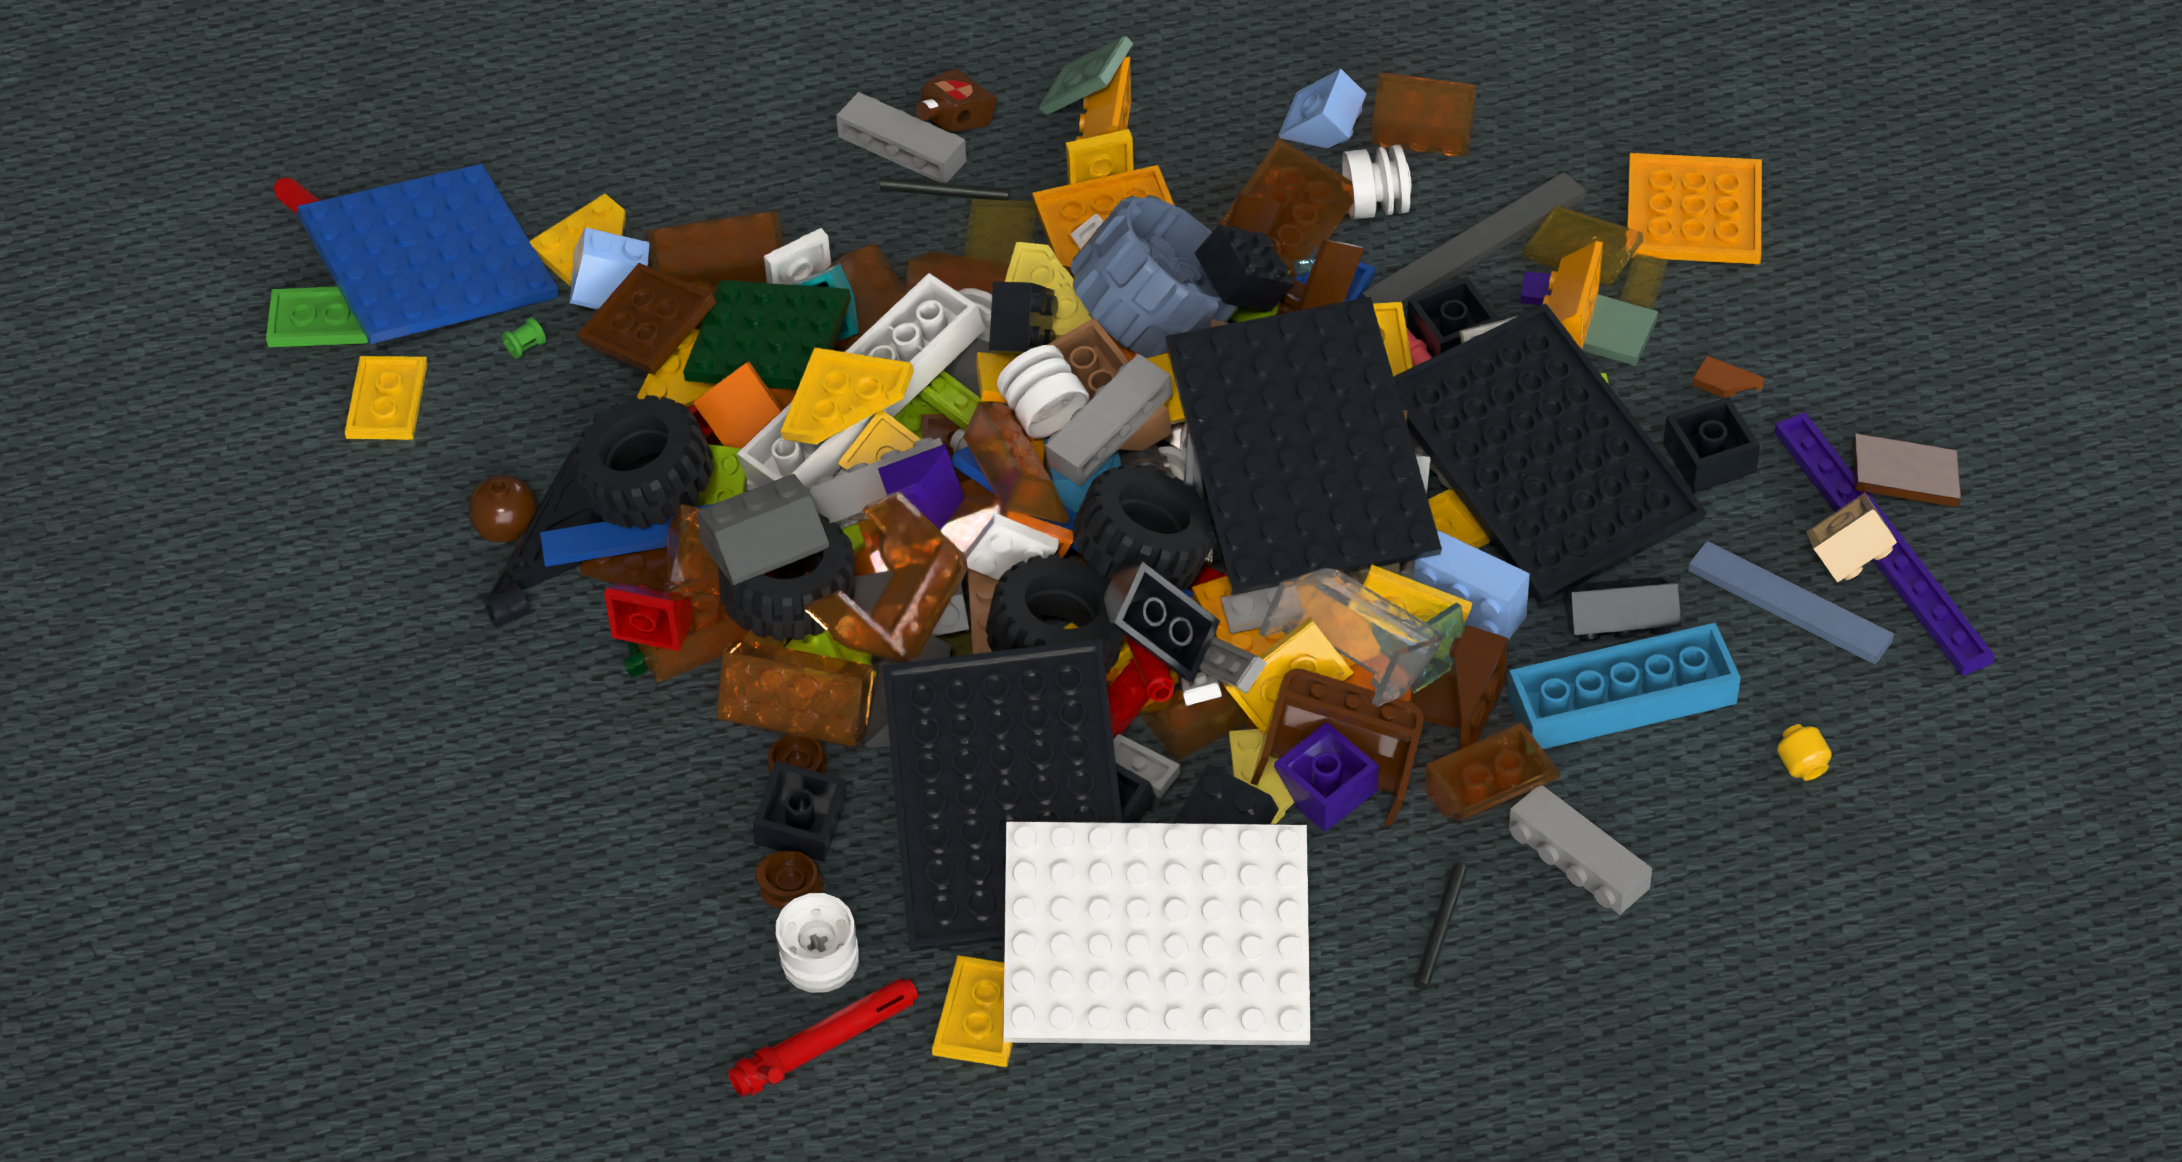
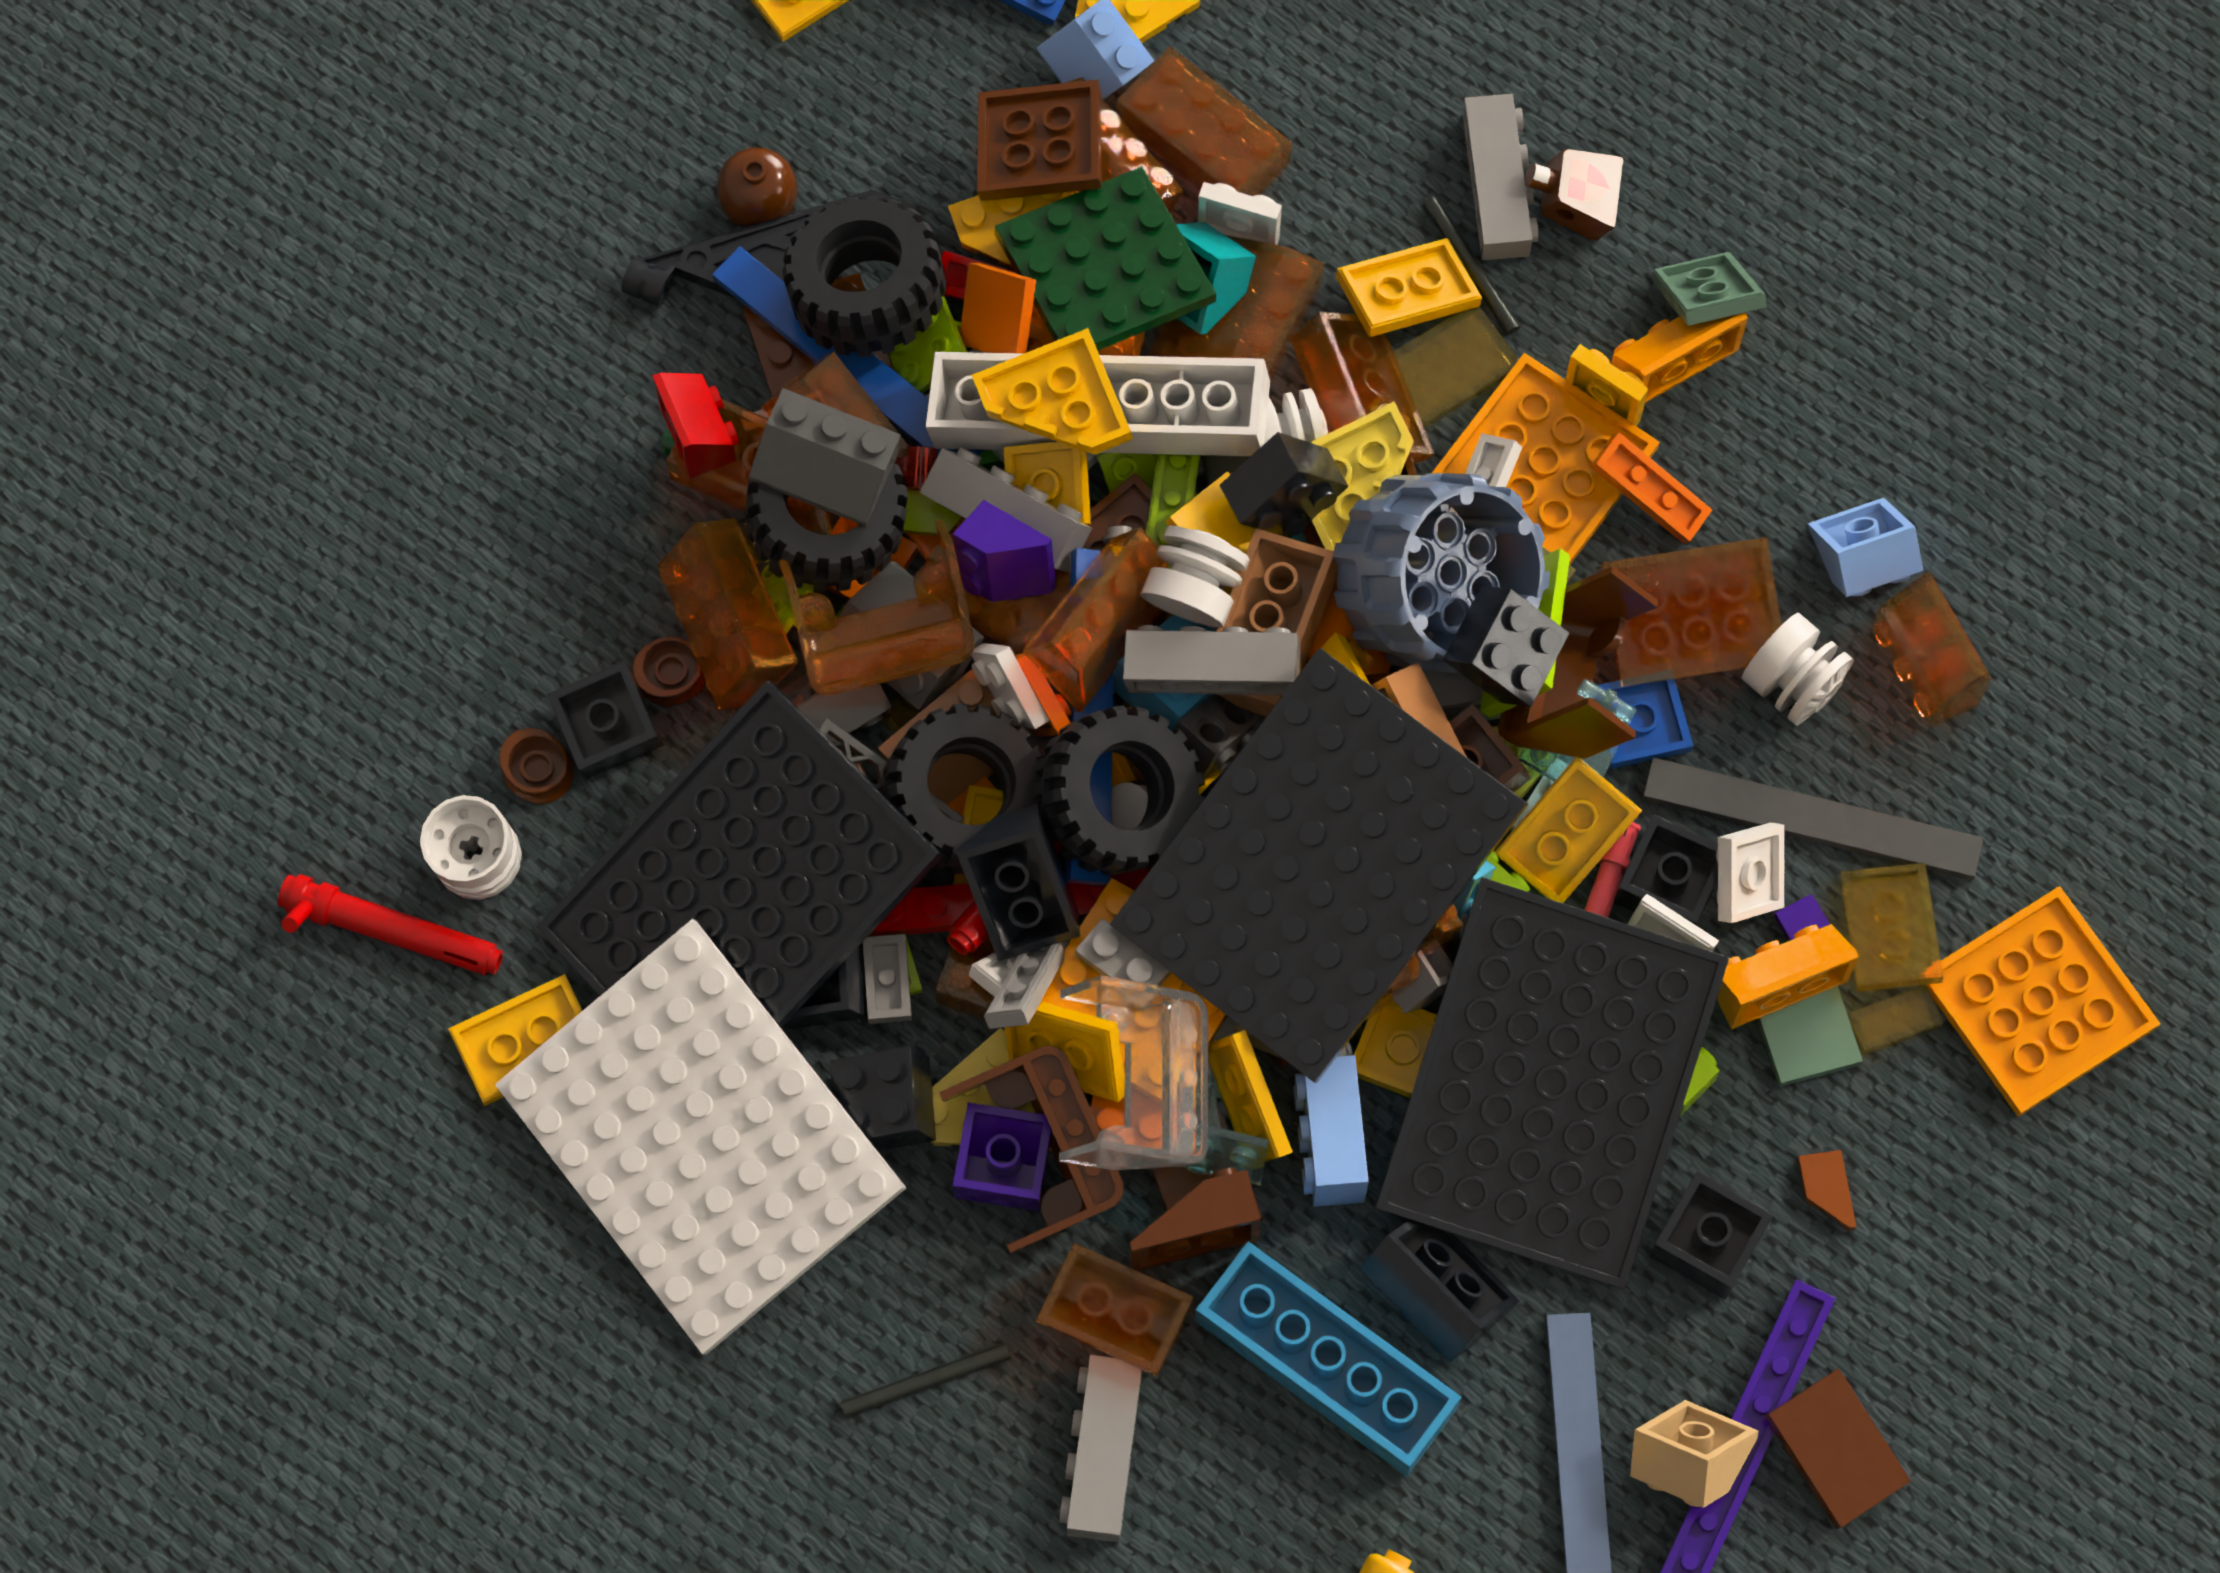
camera: 50 degrees right, 20 degrees up
(523, 338) = (969, 40): bright green bush -> none
(930, 220) = (1408, 287): none -> yellow tile
(1186, 182) = (1651, 488): none -> orange plate
(1481, 270) = (1750, 872): none -> white plate

